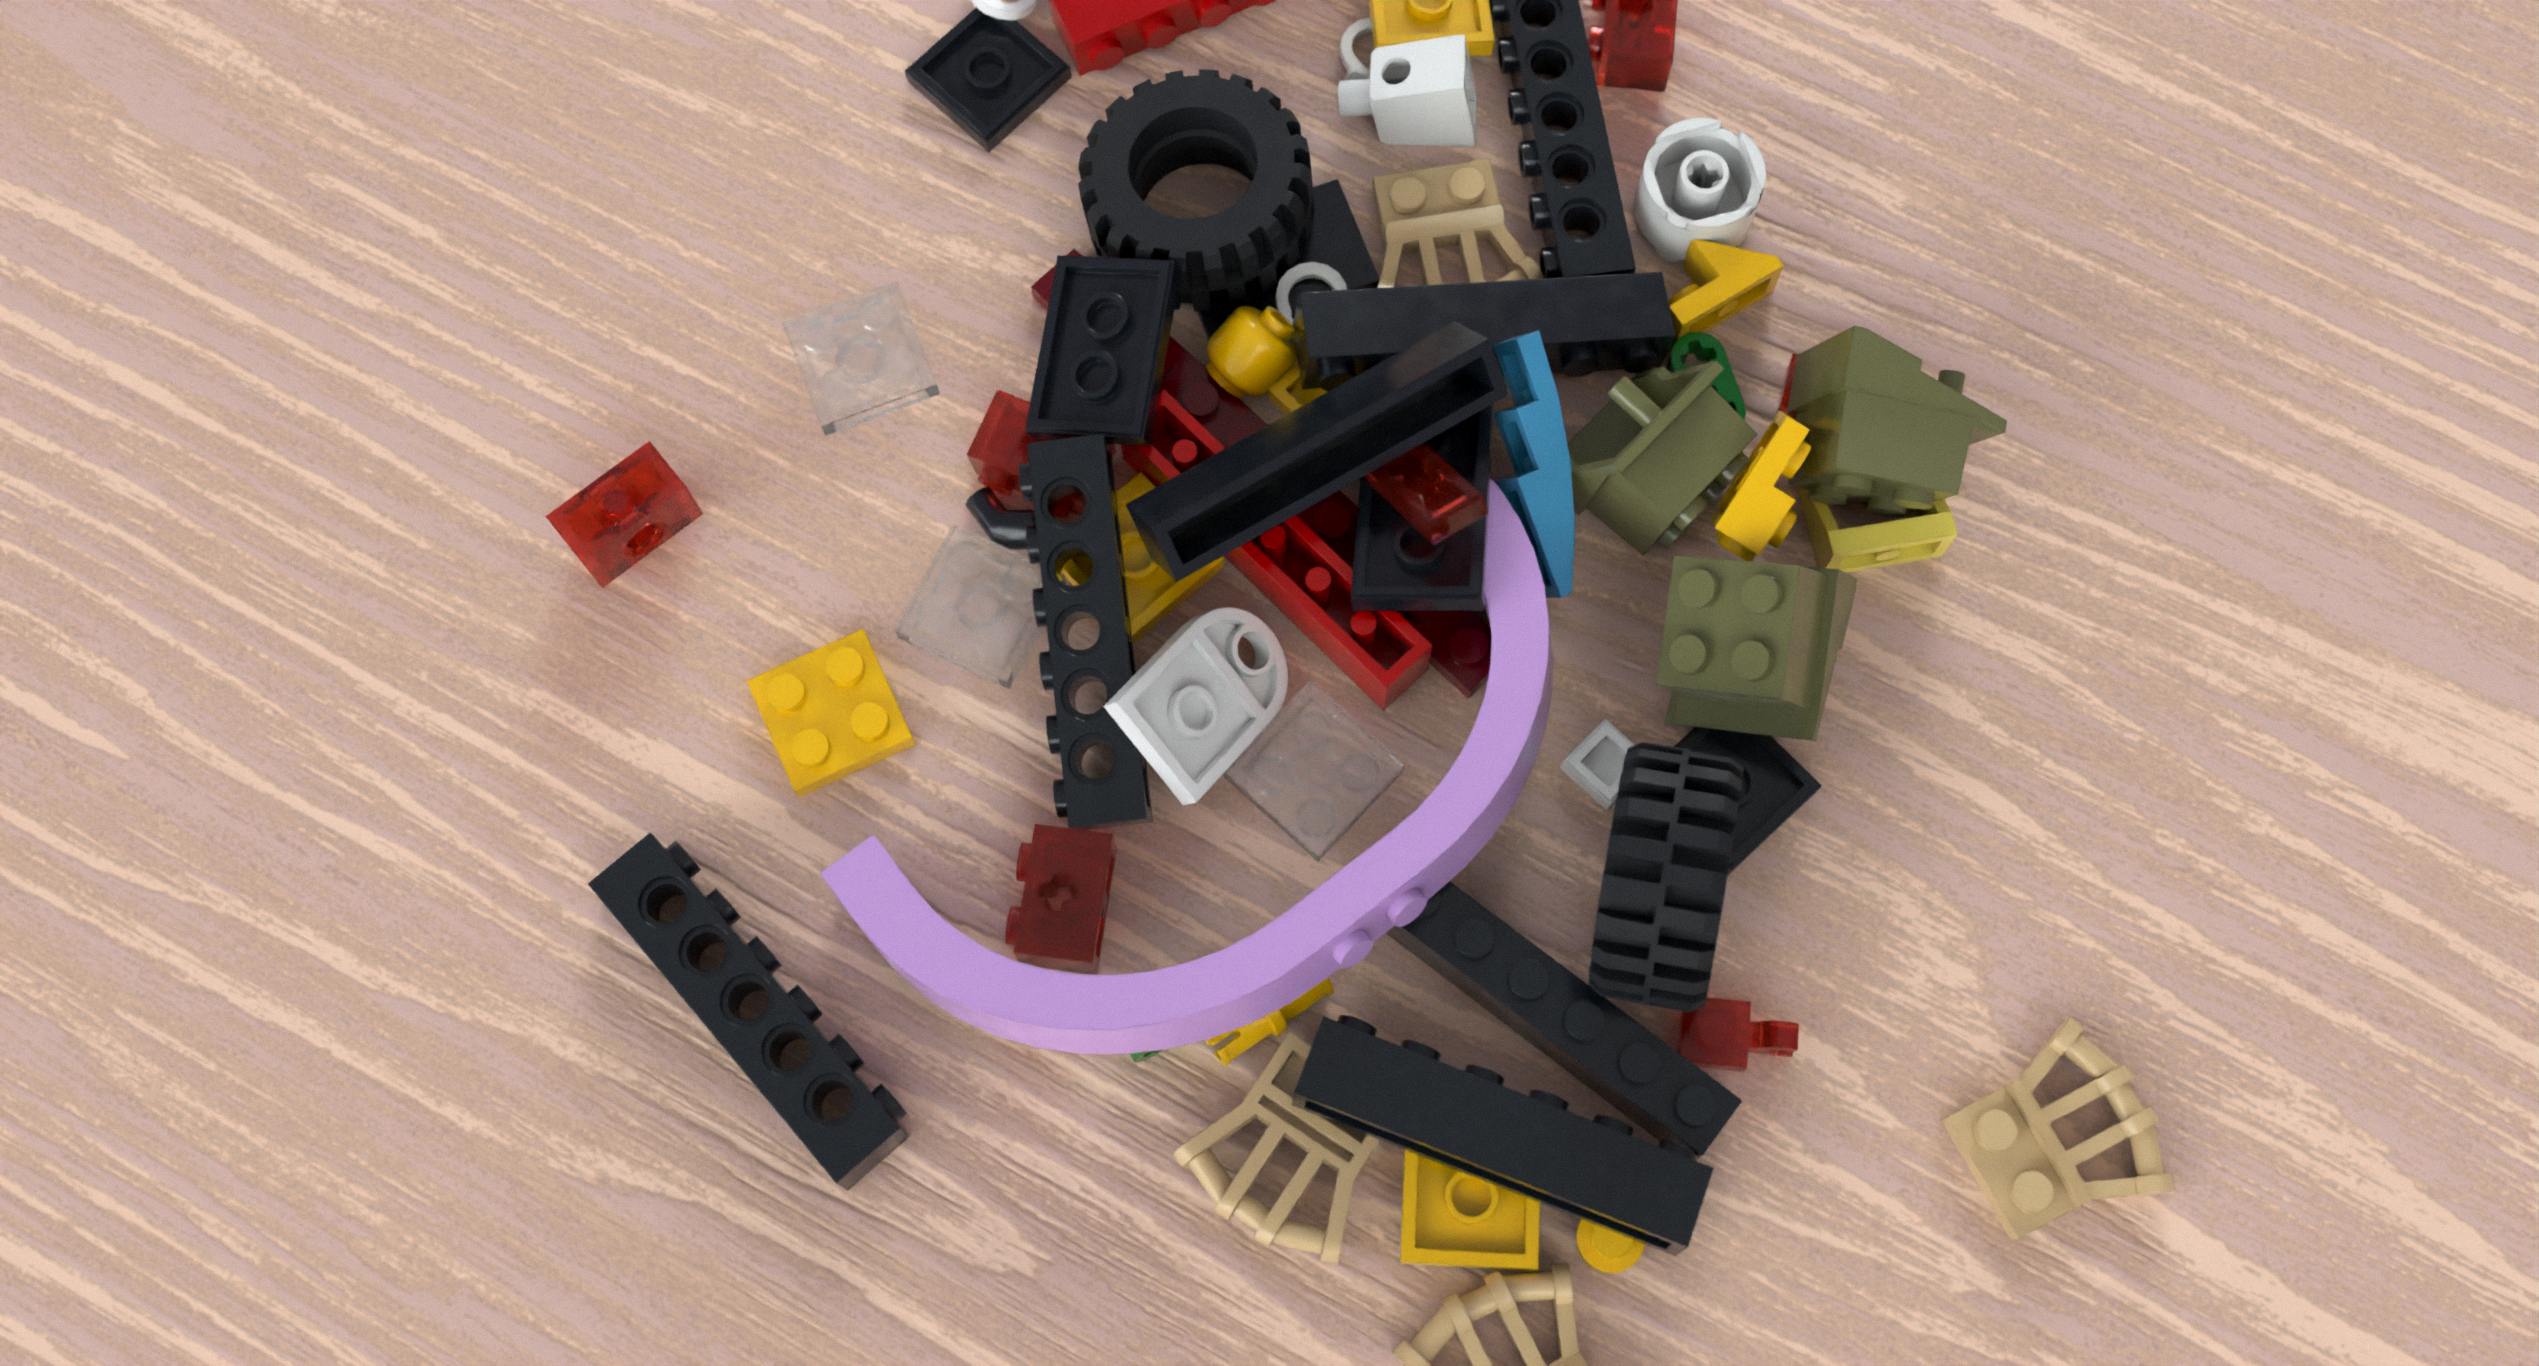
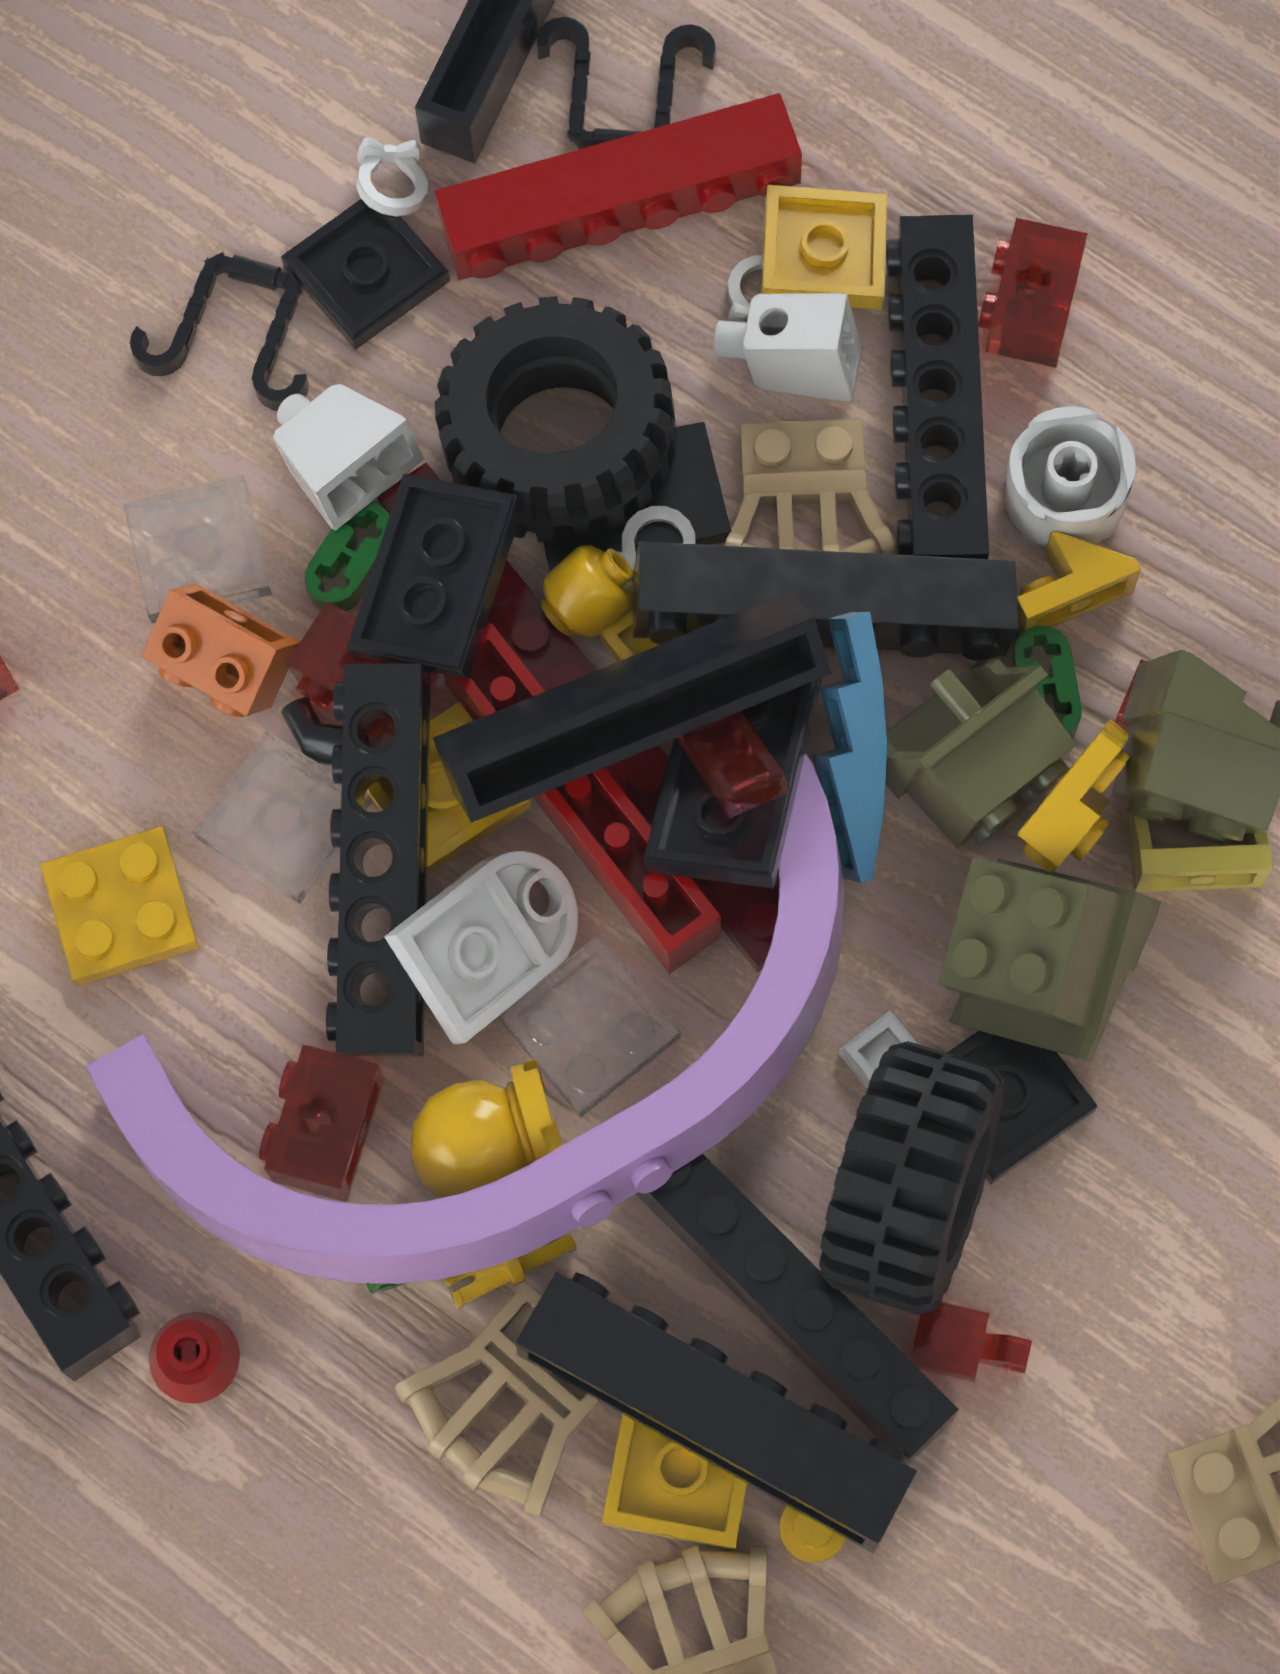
camera: 10 degrees right, 0 degrees up
(876, 90) = (250, 272): none -> black piece
(897, 451) = (219, 650): none -> orange brick
(969, 1170) = (194, 1376): none -> red cone
(993, 244) = (343, 449): none -> white torso
(1000, 342) = (337, 551): none -> green beam
(1227, 888) = (482, 1131): none -> yellow tile

